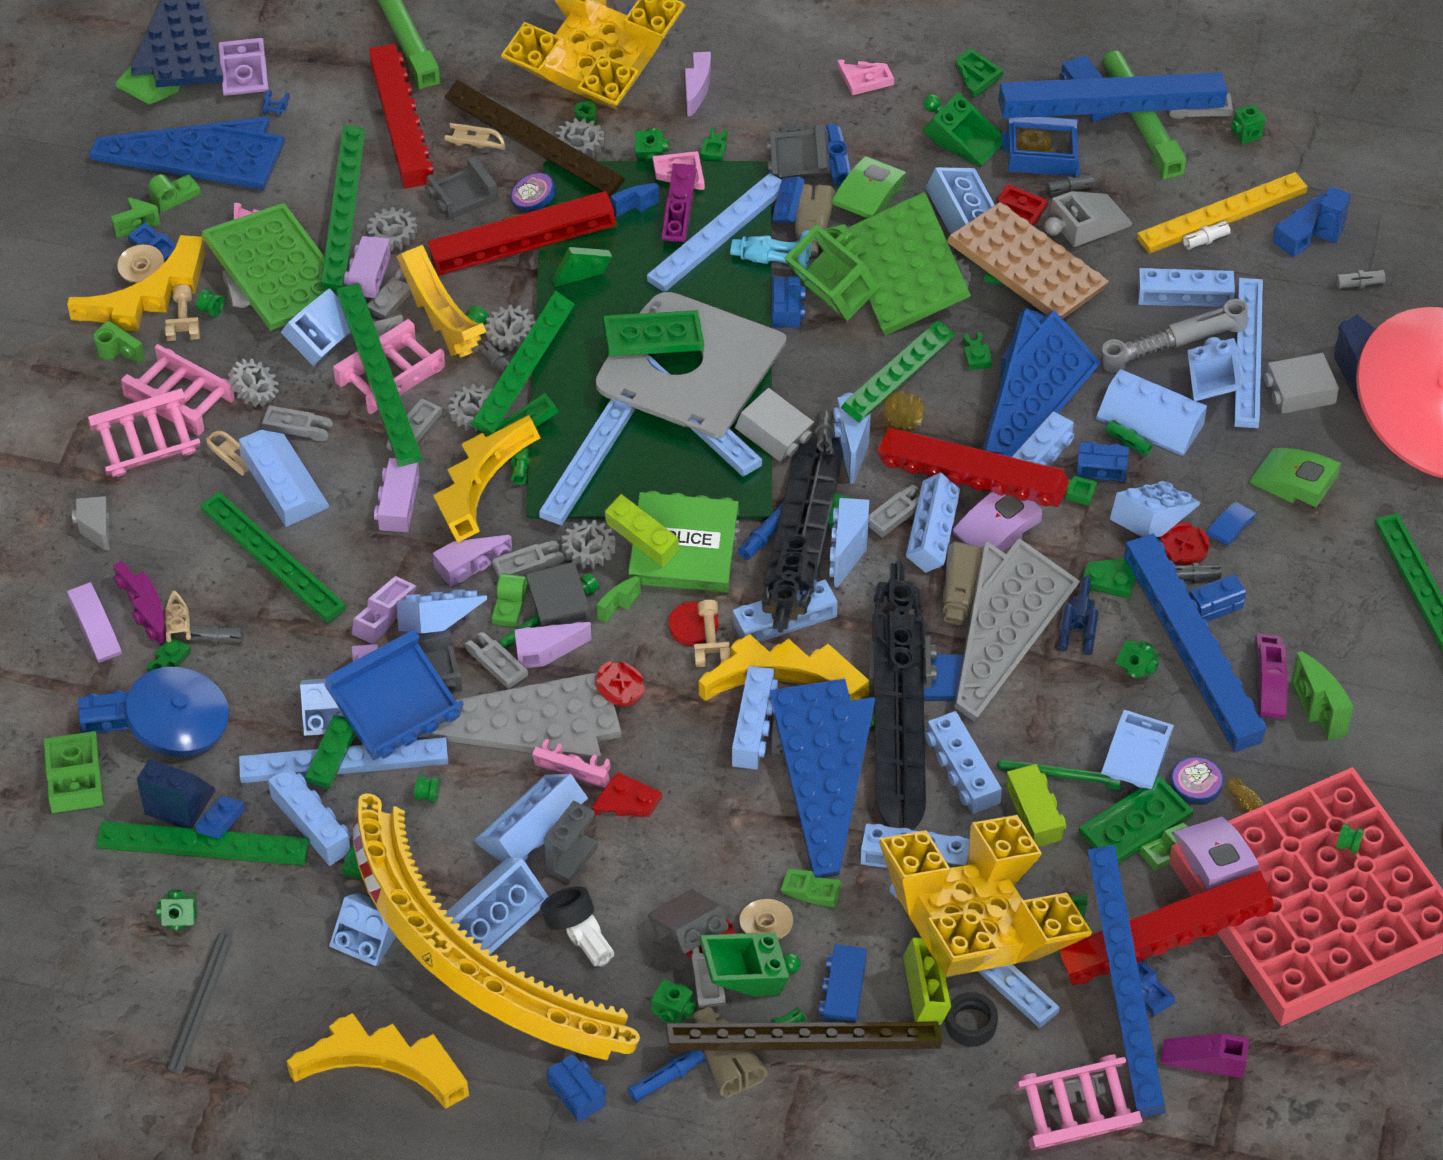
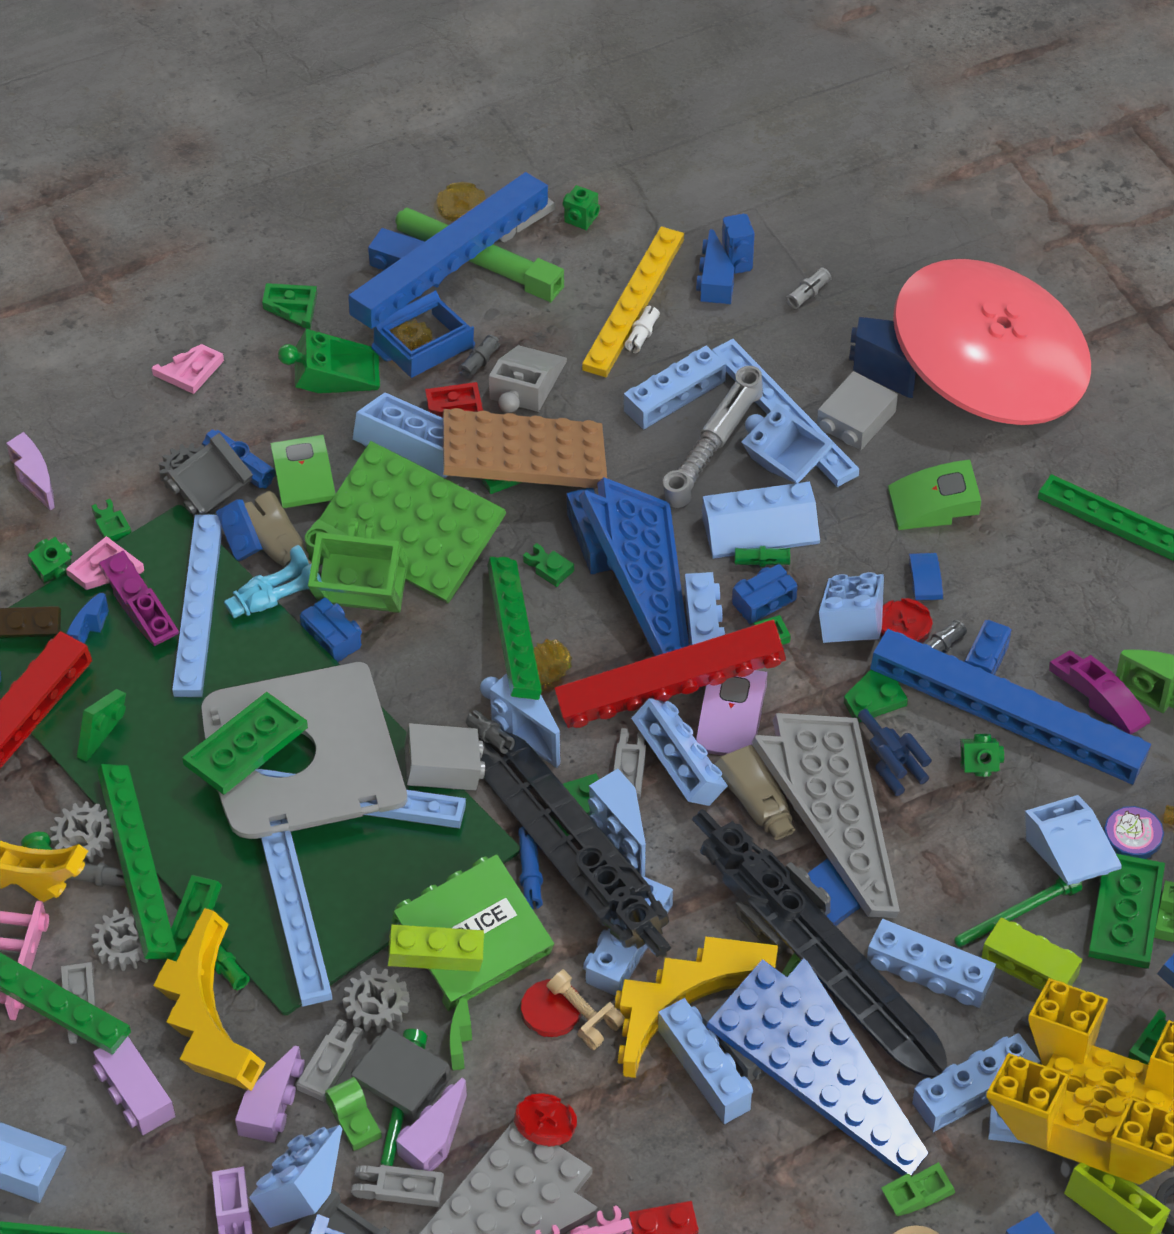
camera: 40 degrees left, 0 degrees up
(1168, 65) = (458, 200): none -> clear yellow tile

